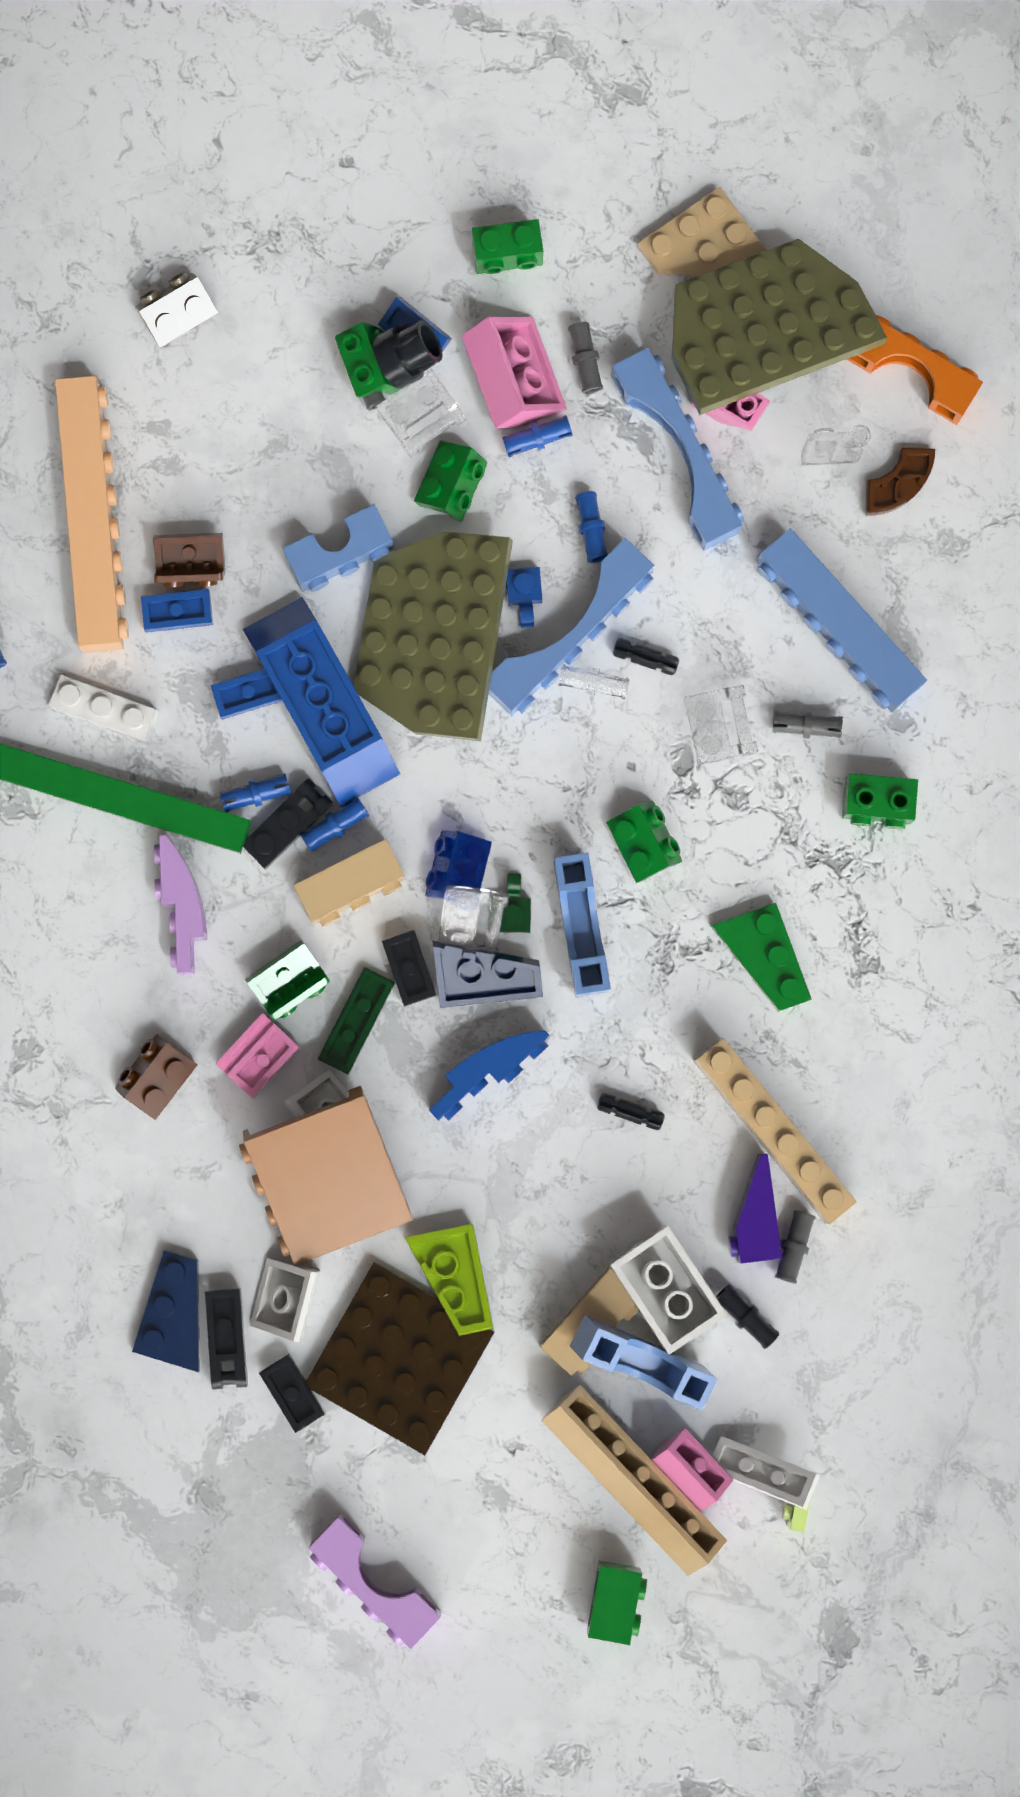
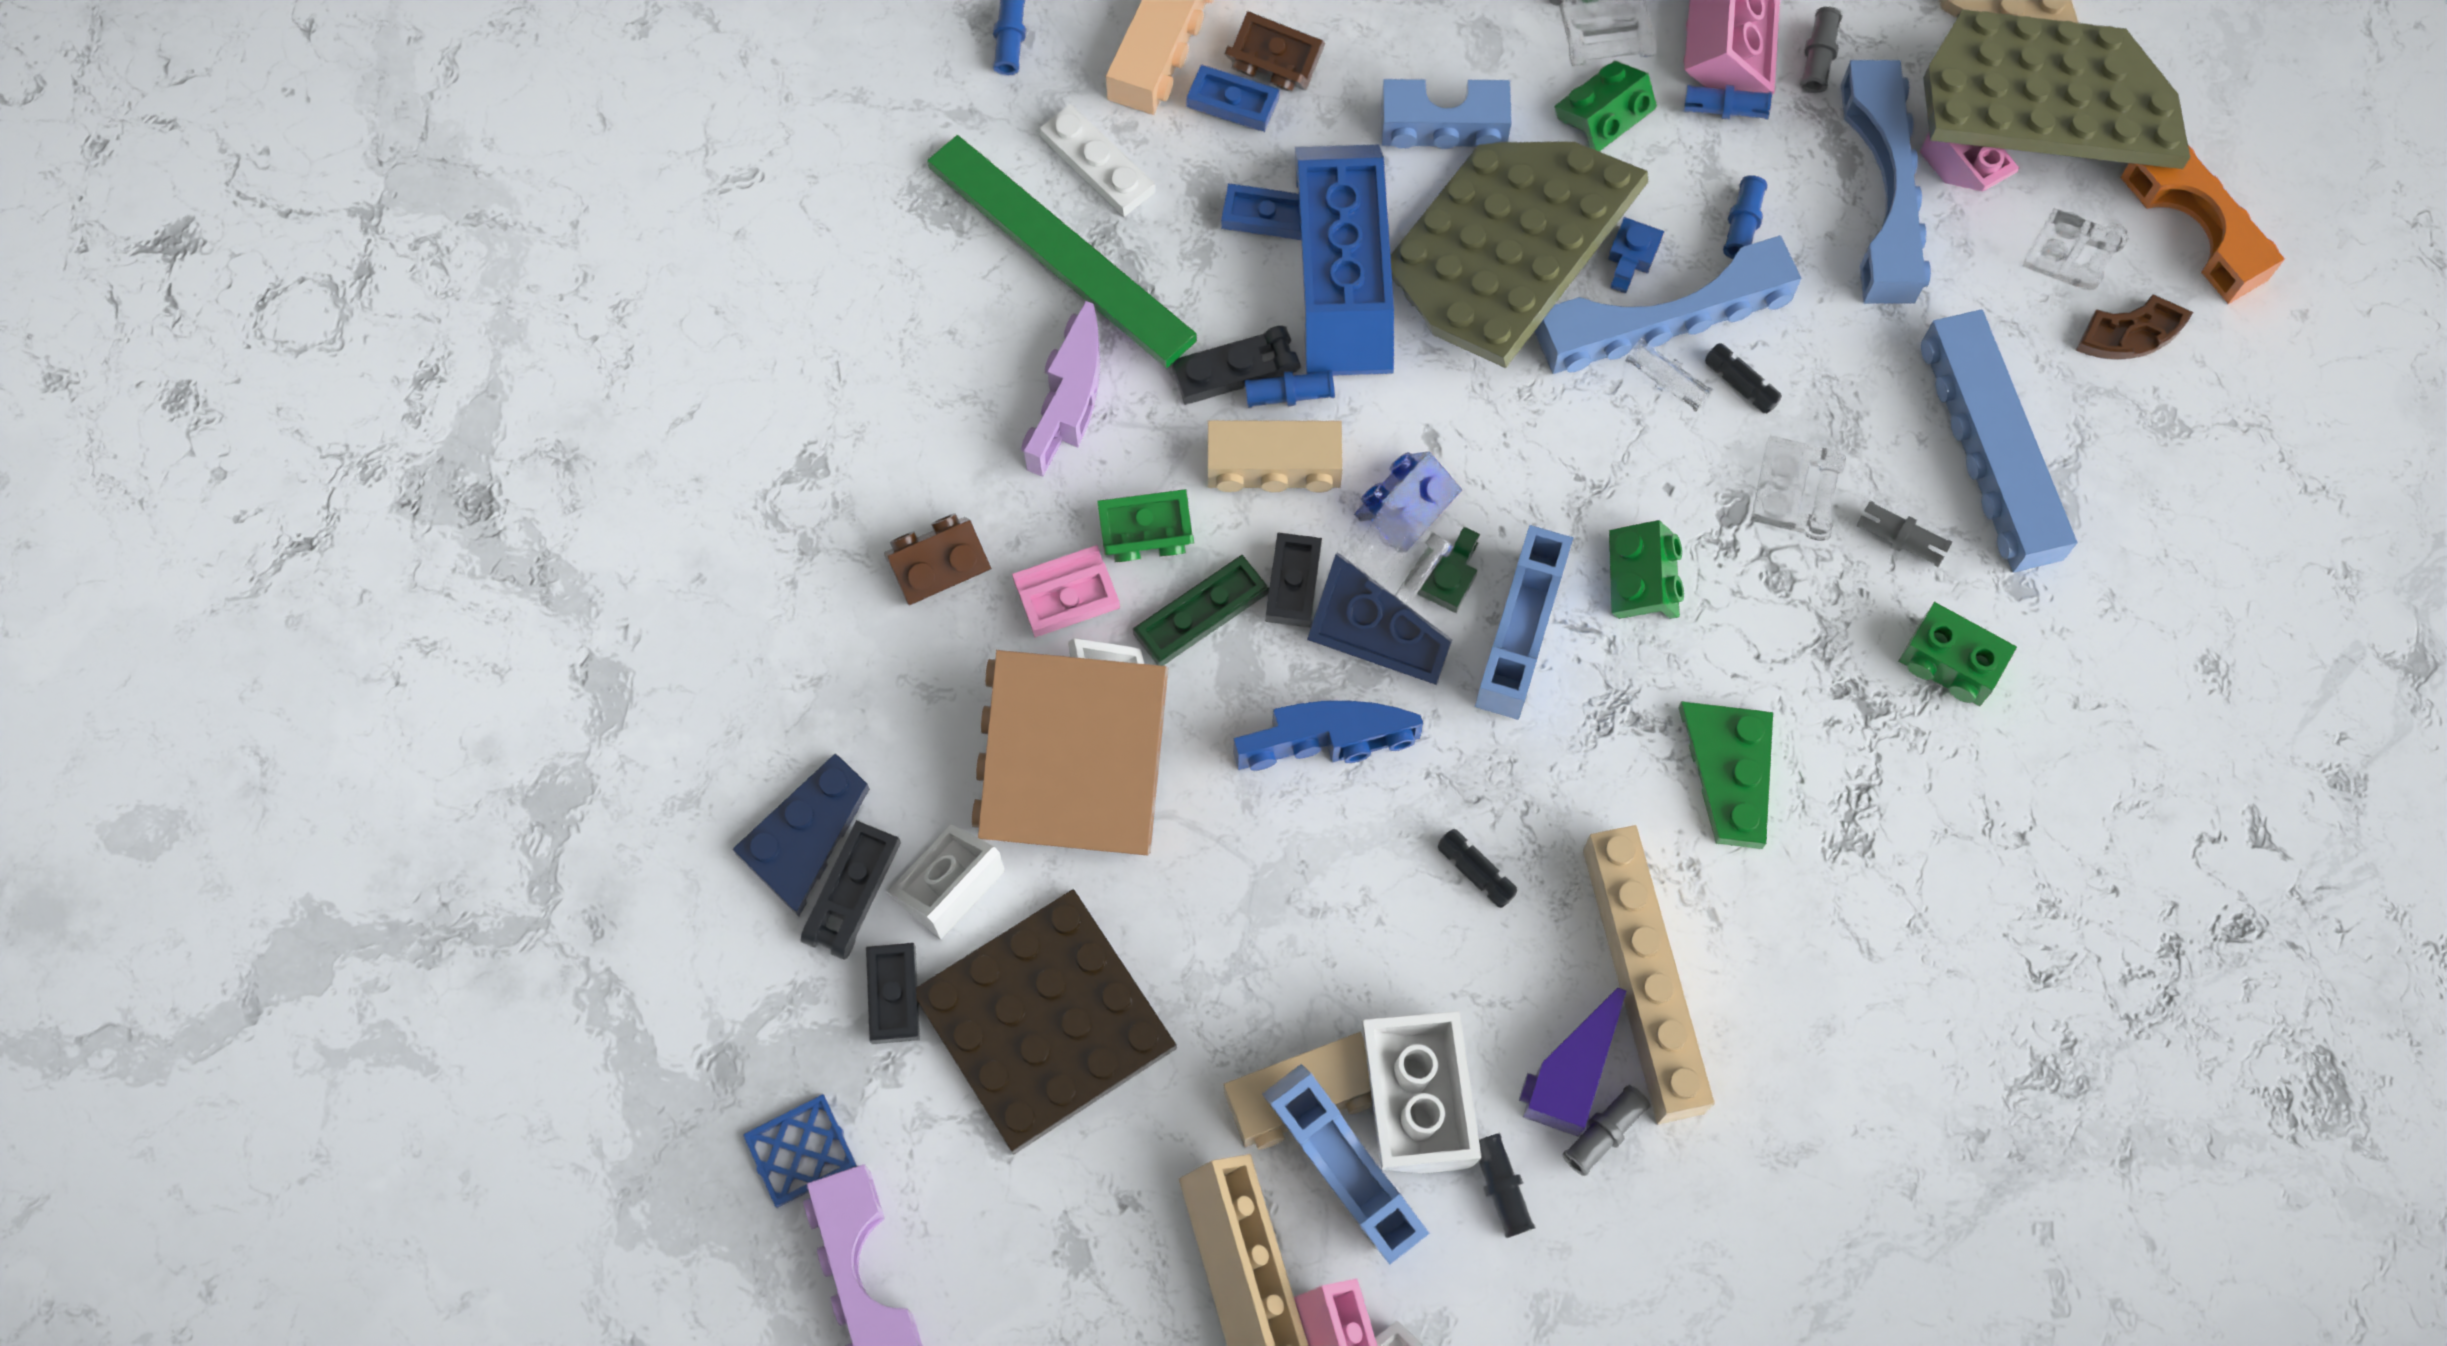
camera: 30 degrees right, 15 degrees down
(255, 793) = (1217, 315): blue pin -> none
(303, 1500) = (765, 1168): none -> blue window
(456, 1275) = (1165, 950): lime wing -> none

